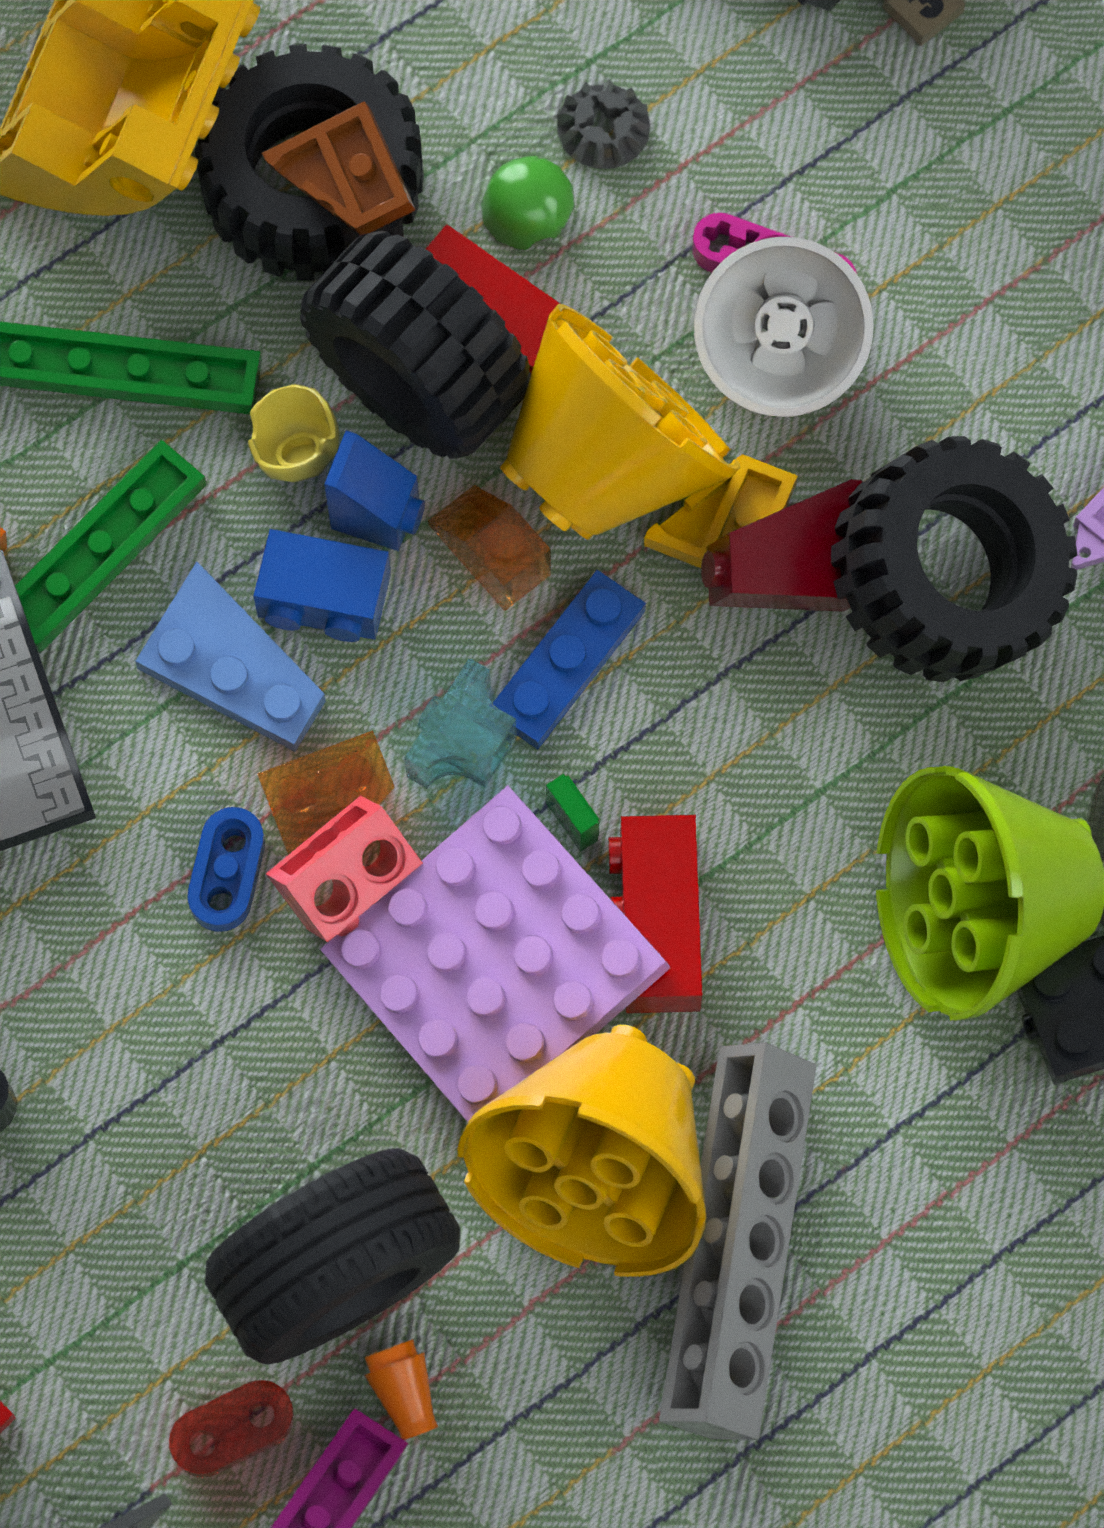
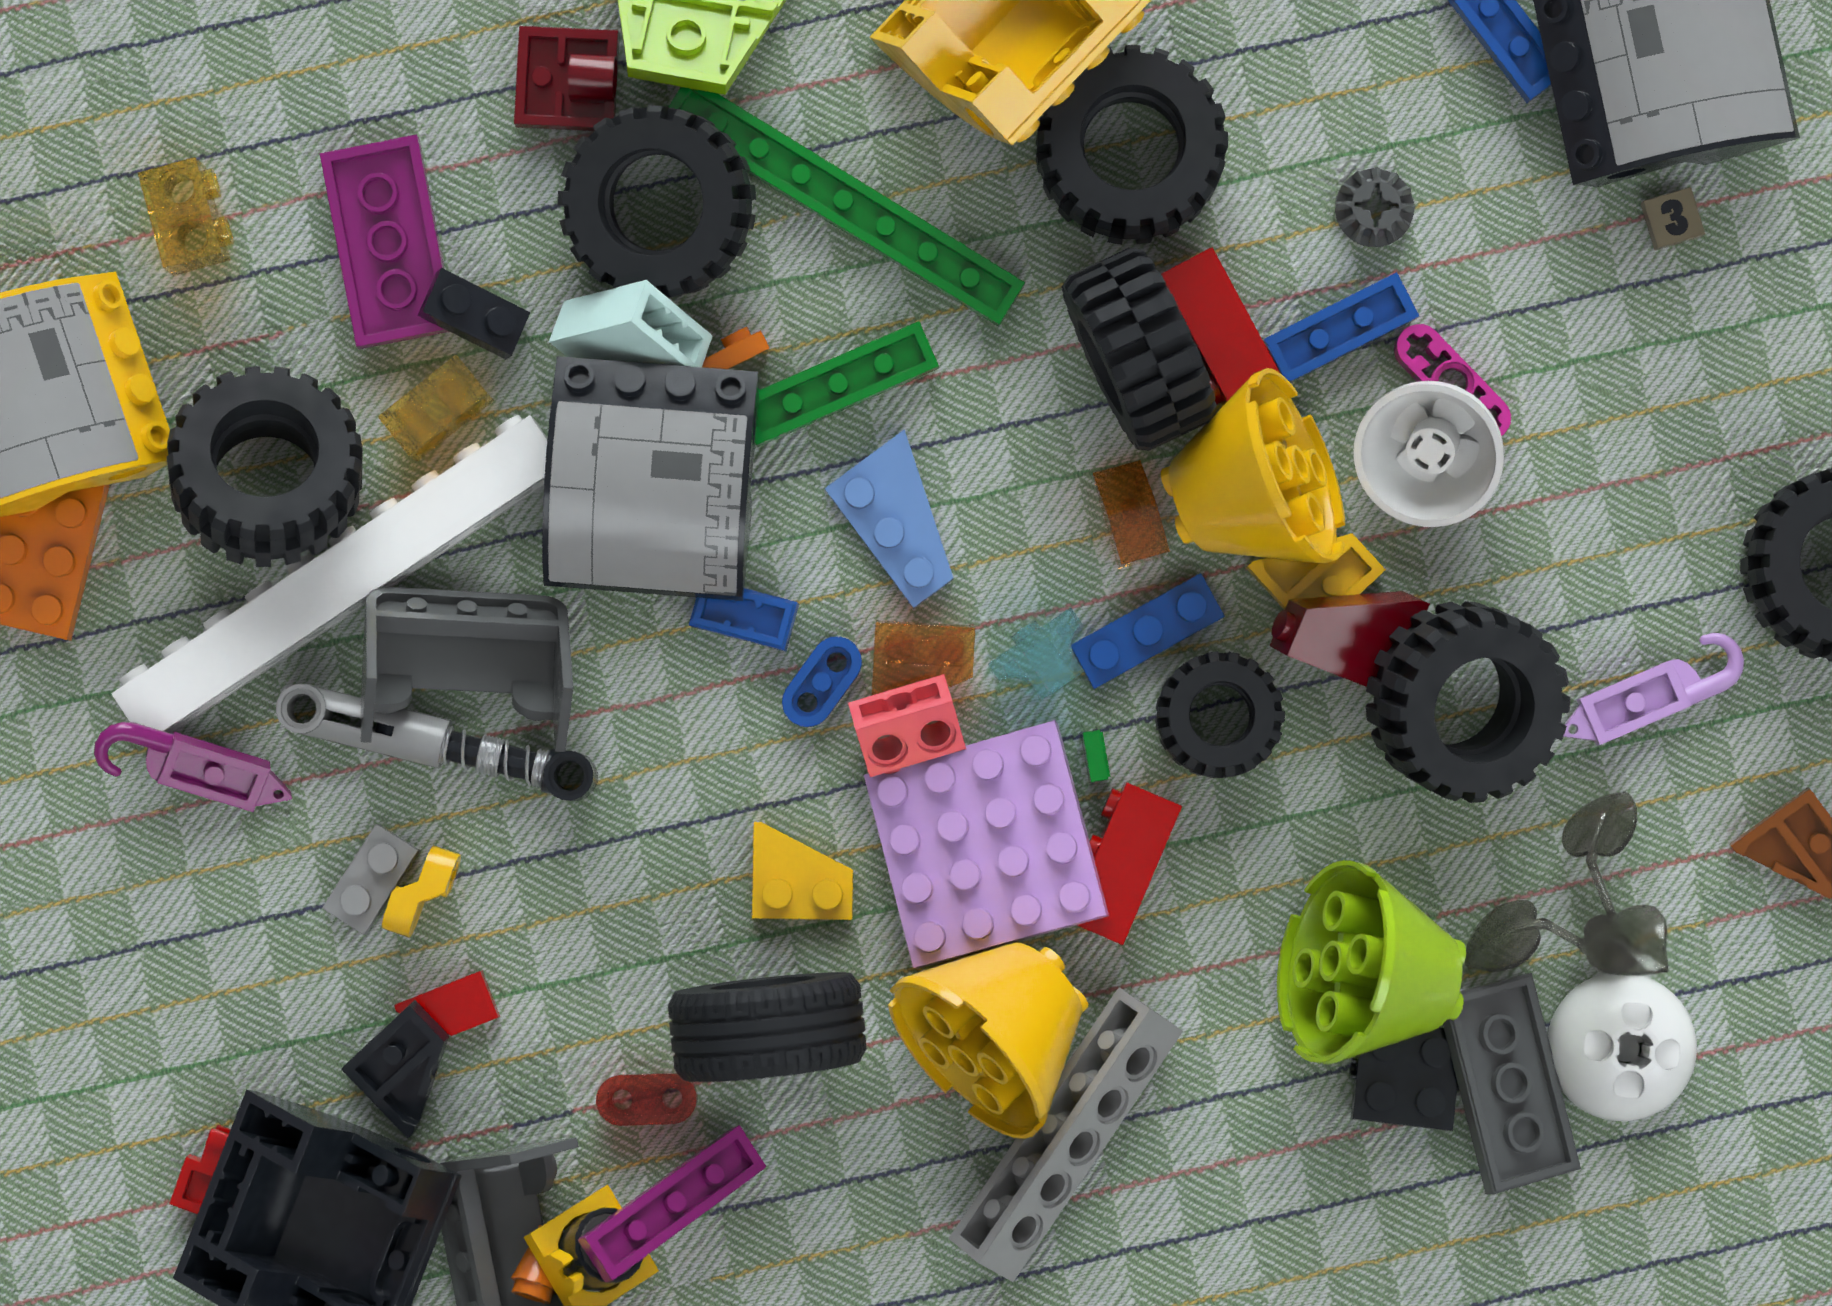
camera: 30 degrees right, 15 degrees up
(120, 835) = (756, 619): none -> blue plate
(293, 433) = (1020, 363): light yellow hair -> none
(297, 1102) = (797, 880): none -> yellow wing
(322, 586) = (988, 493): blue brick -> none
(345, 170) = (1150, 182): dark orange wing -> none
(372, 494) = (1058, 443): blue slope -> none
(403, 1388) = (780, 1125): orange cone -> none
(527, 202) = (1286, 247): bright green hair -> none
(630, 251) = (1341, 328): none -> blue plate
(697, 658) = (1262, 703): none -> black tyre

